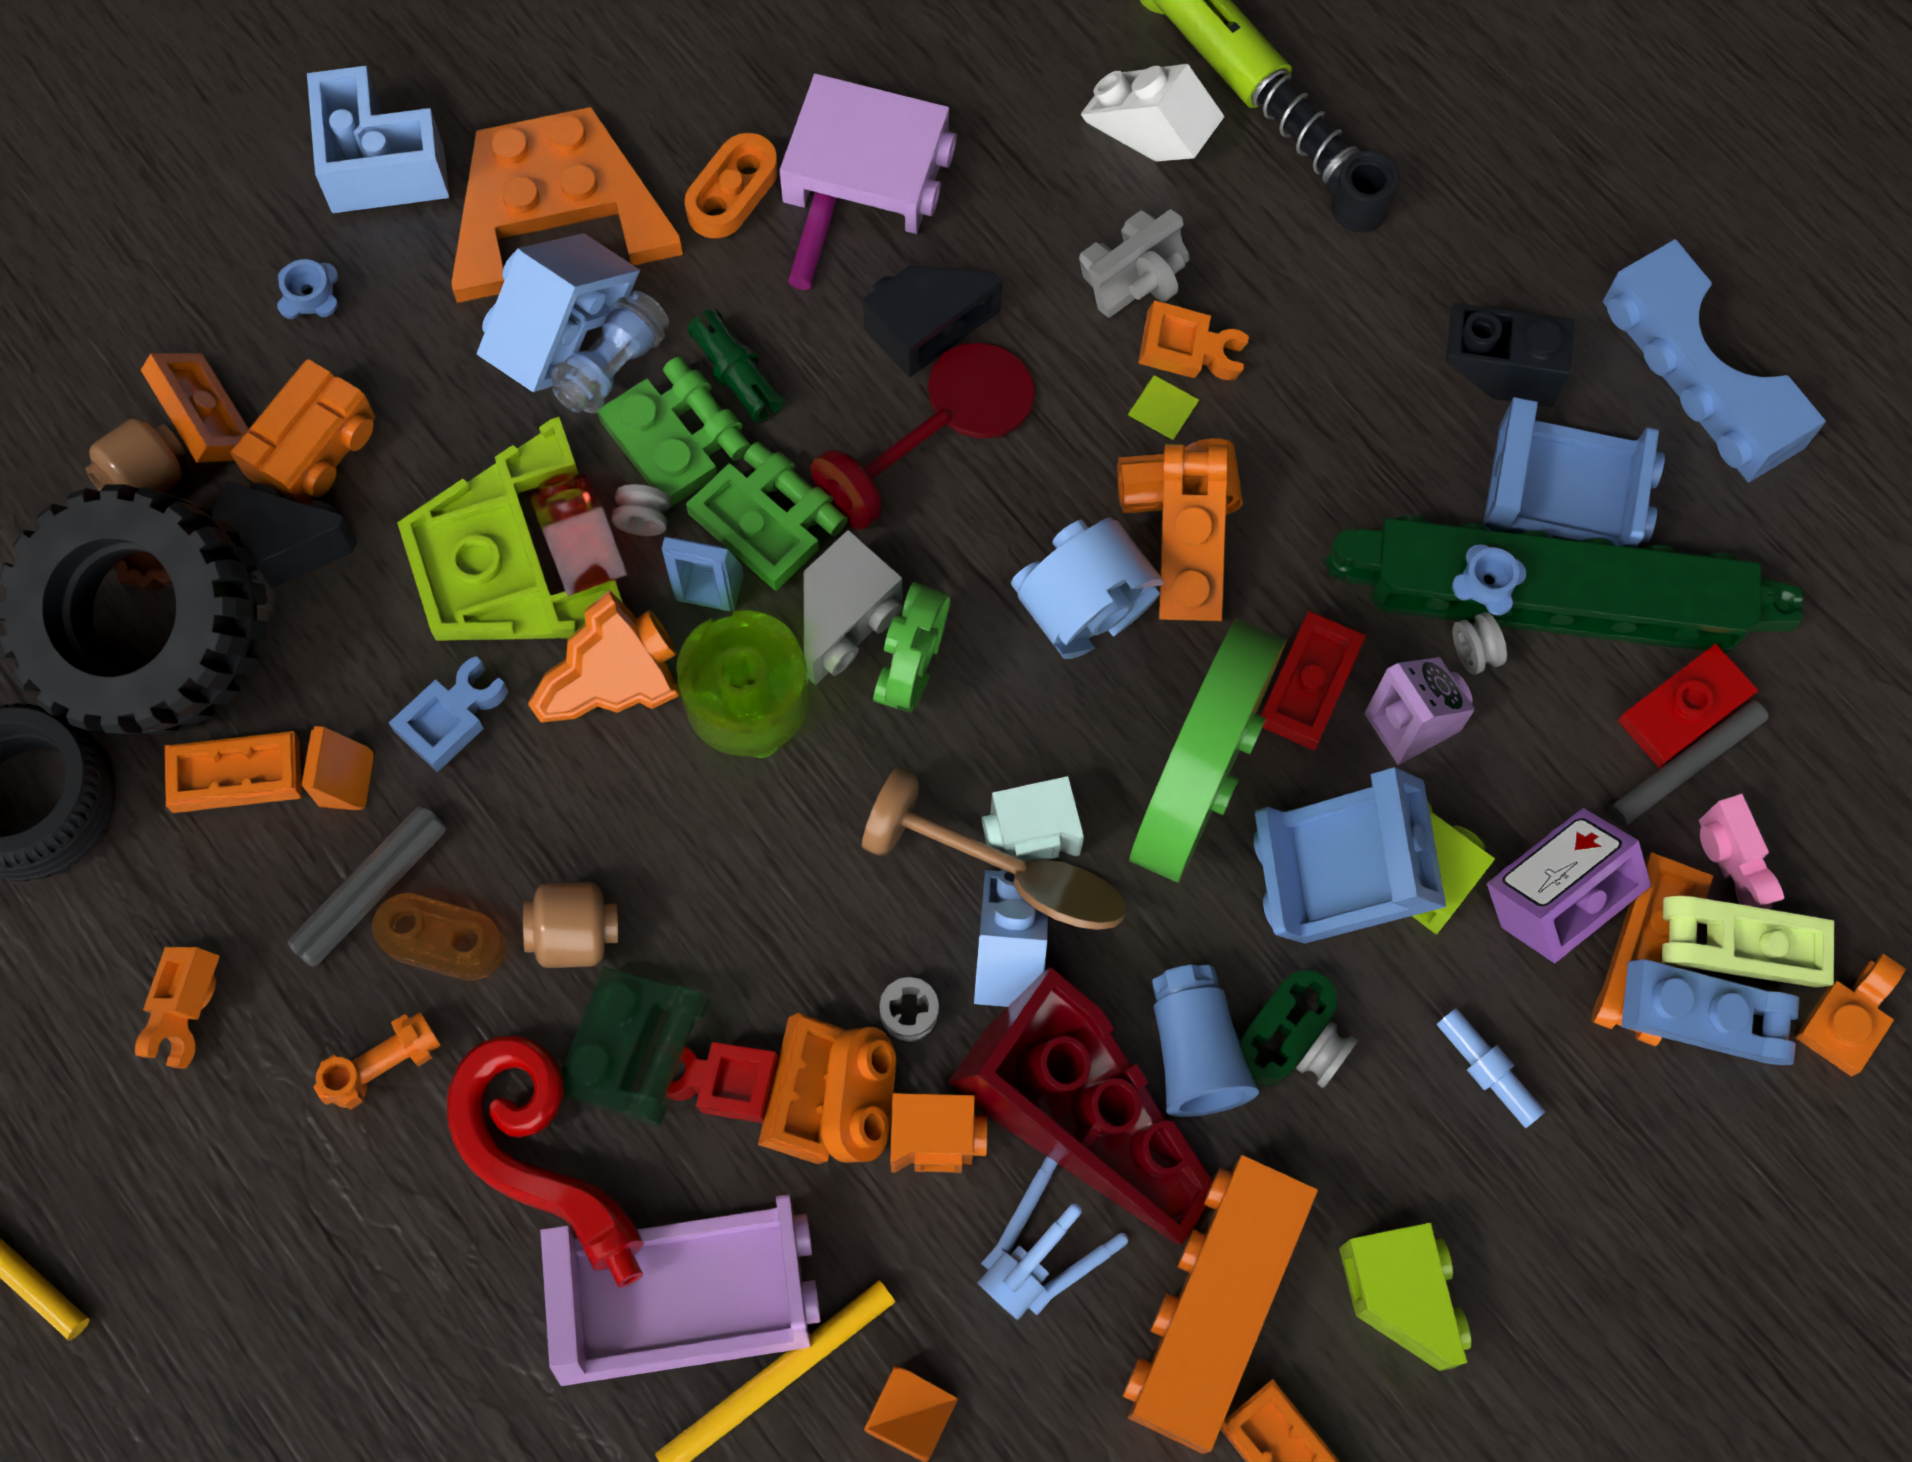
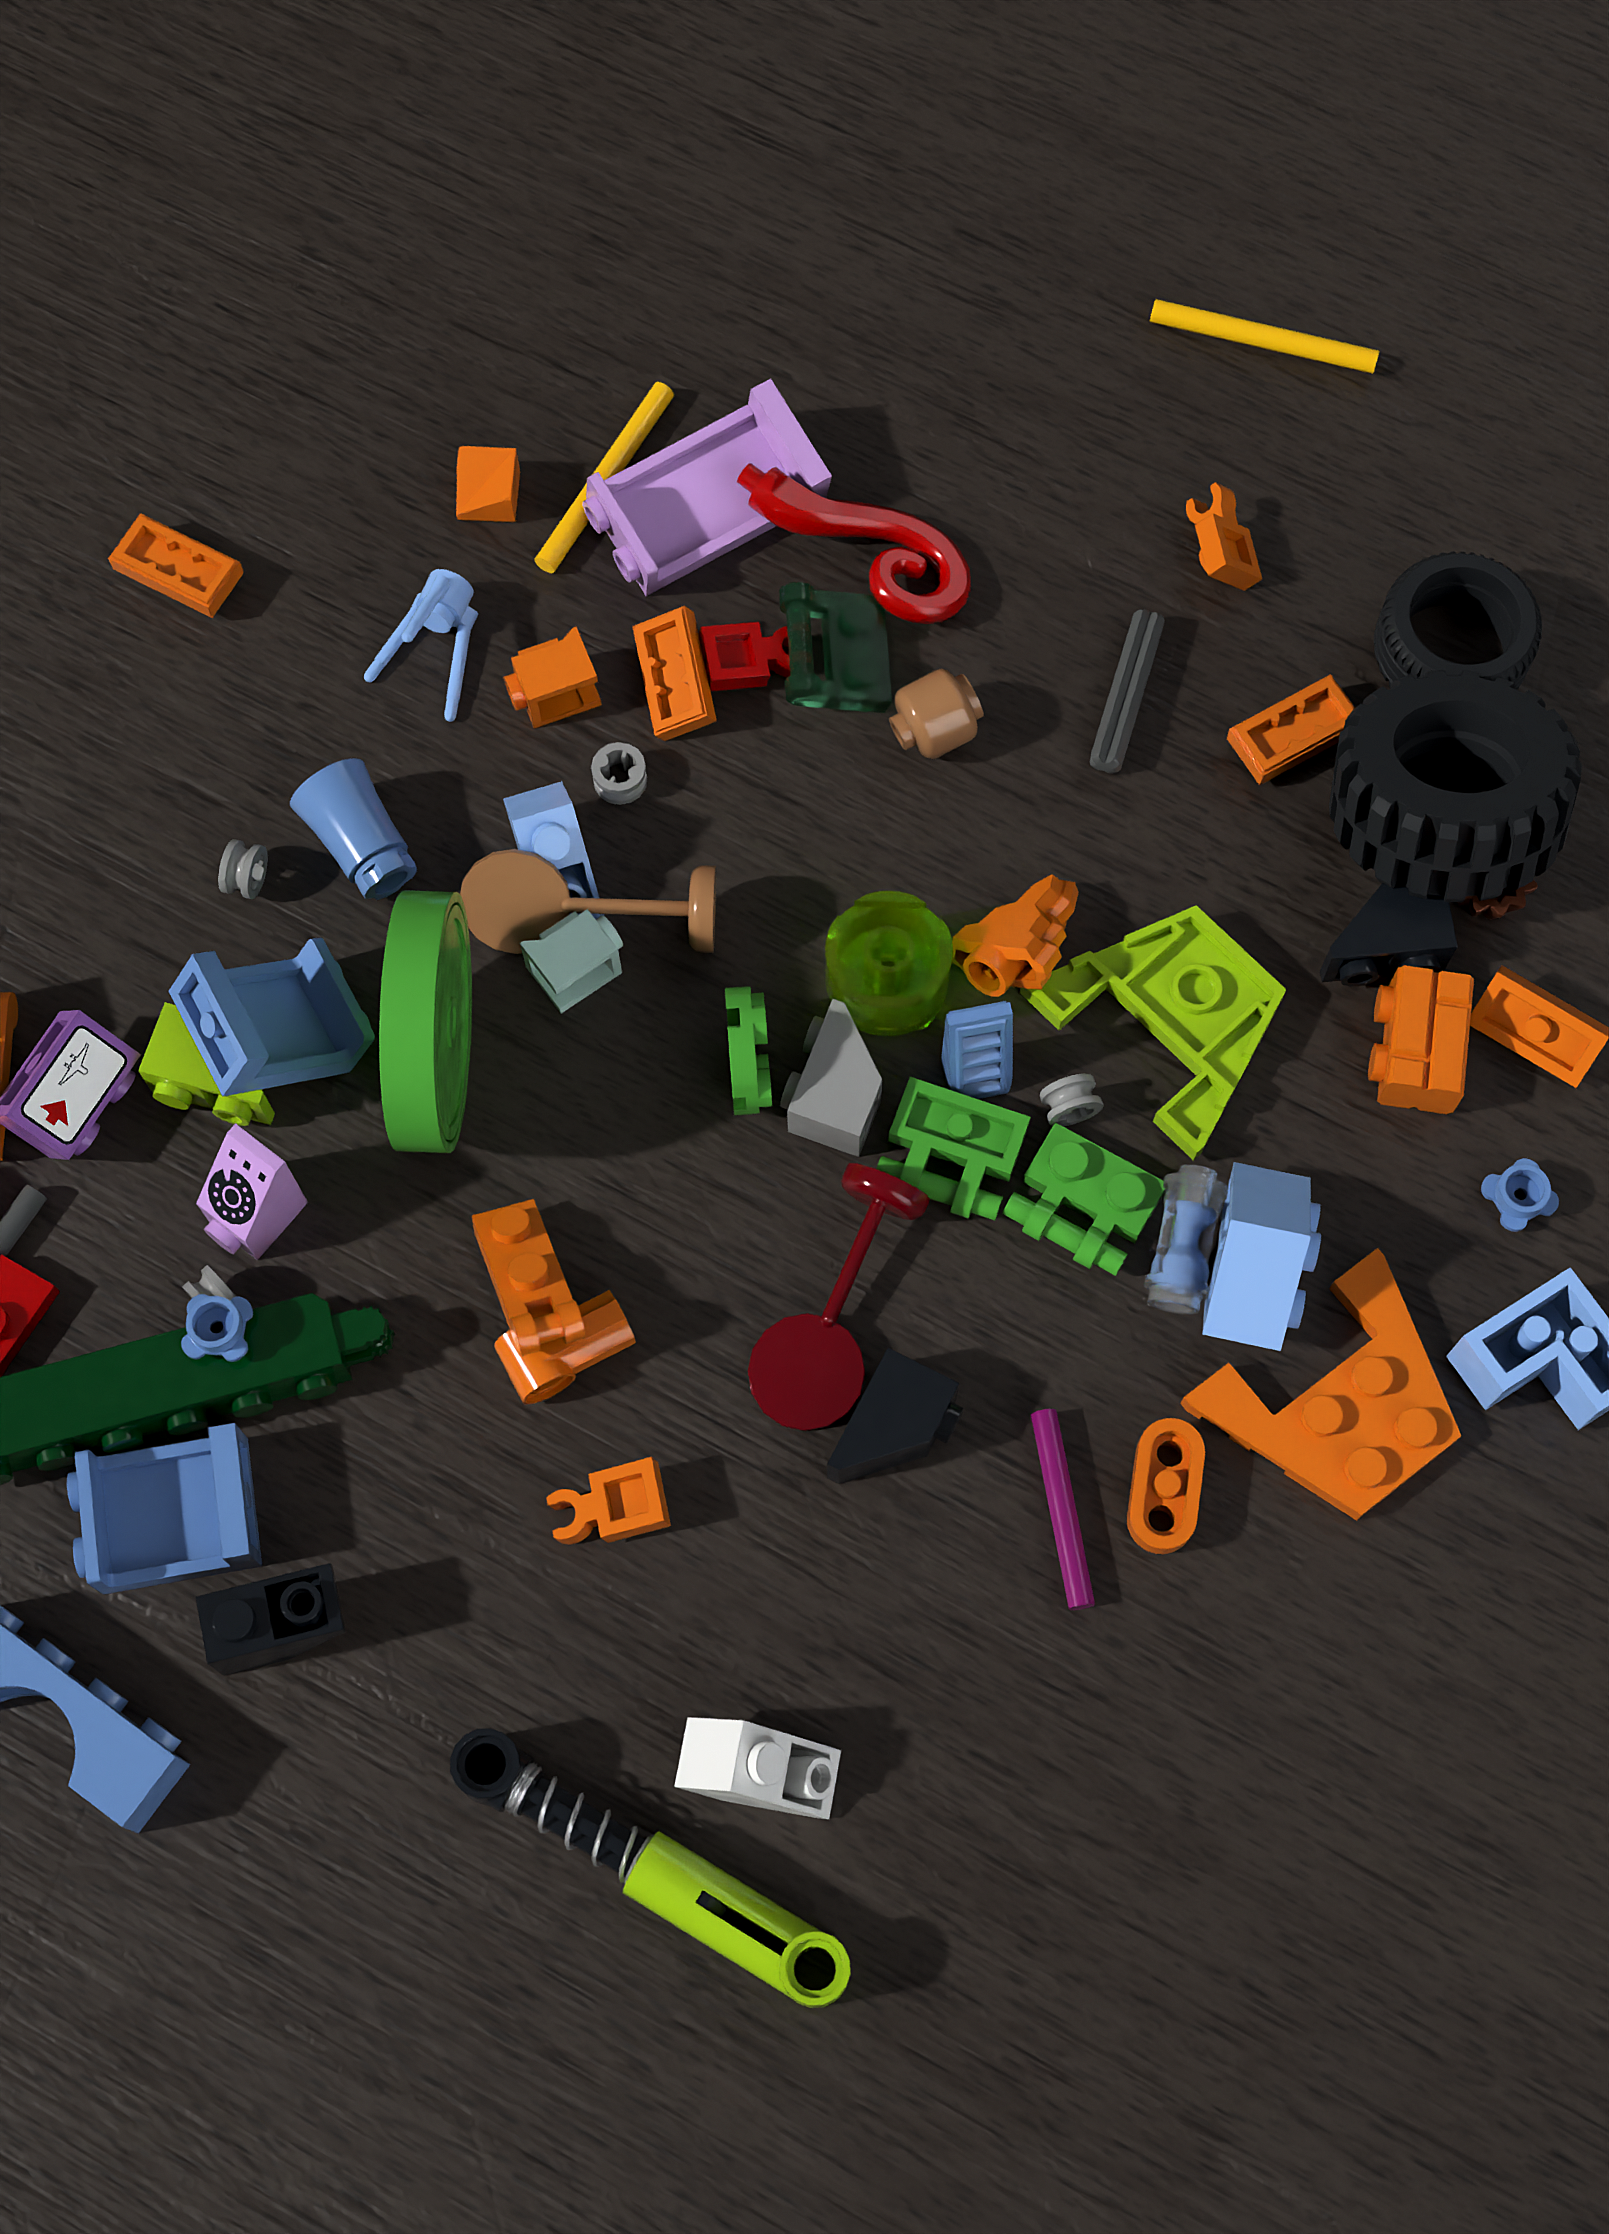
camera: 160 degrees right, 0 degrees up
(137, 457) = (1557, 944): medium nougat head -> none
(337, 770) = (1207, 765): orange slope -> none
(346, 1081) = (1054, 545): orange bar -> none
(435, 936) = (1047, 679): clear orange plate -> none
(443, 720) = (1141, 844): medium blue plate -> none
(576, 532) = (1120, 1047): clear red slope -> none
(736, 365) = (1059, 1290): dark green pin -> none
(858, 1095) = (629, 684): orange plate -> none
(868, 149) = (1041, 1576): lavender panel -> none
(1071, 1094) = (440, 742): dark red wedge -> none
(1087, 585) = (607, 1175): light blue brick -> none
(1140, 265) = (717, 1547): light grey hips -> none
(1163, 407) = (615, 1436): lime sticker -> none
(1221, 1304) = (268, 647): orange brick -> none
(1299, 1036) = (274, 880): dark green beam -> none
(1311, 680) = (365, 1198): red plate -> none
(1404, 1294) = (123, 710): lime slope -> none
(1491, 1068) = (96, 919): light blue bar -> none

